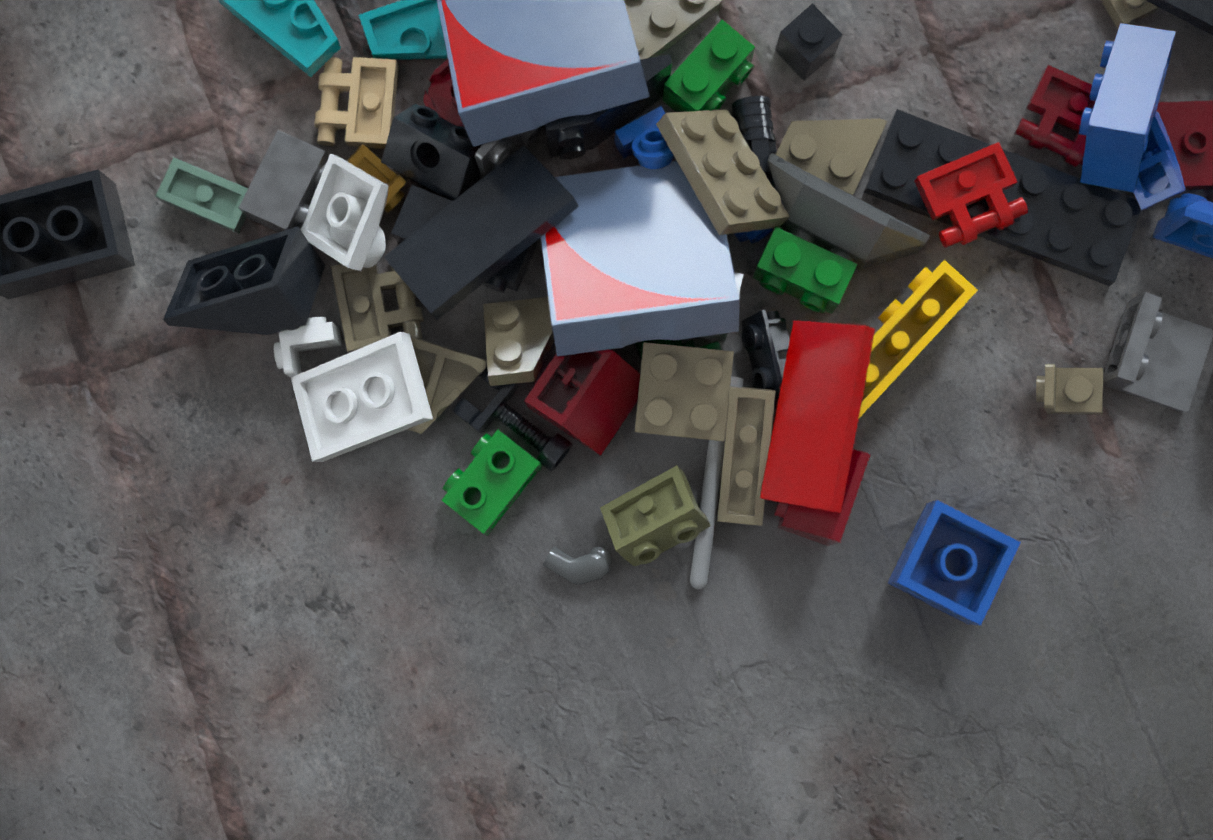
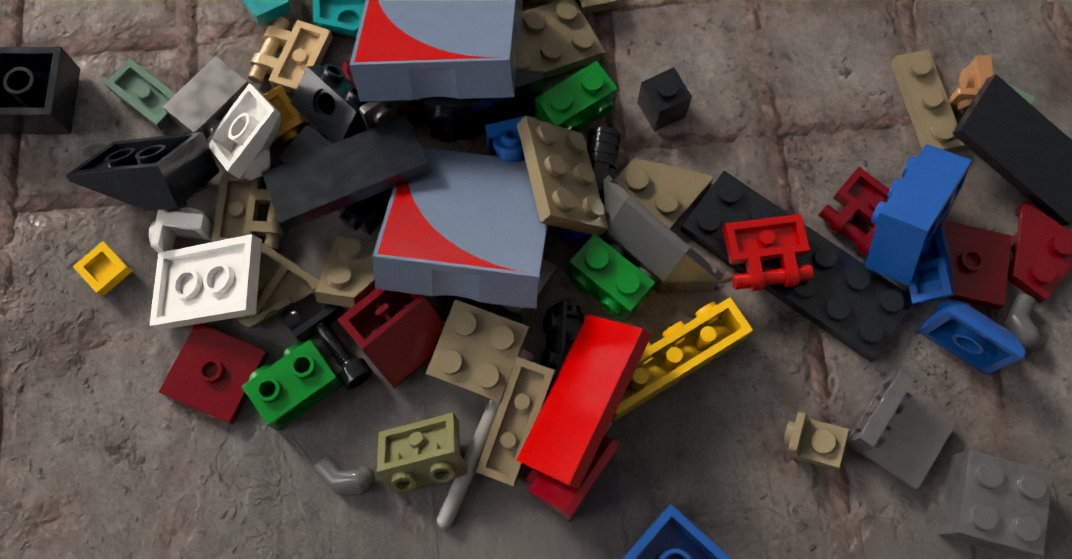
camera: 10 degrees right, 10 degrees down
(234, 412) = (102, 269): none -> yellow plate
(398, 492) = (212, 371): none -> dark red plate

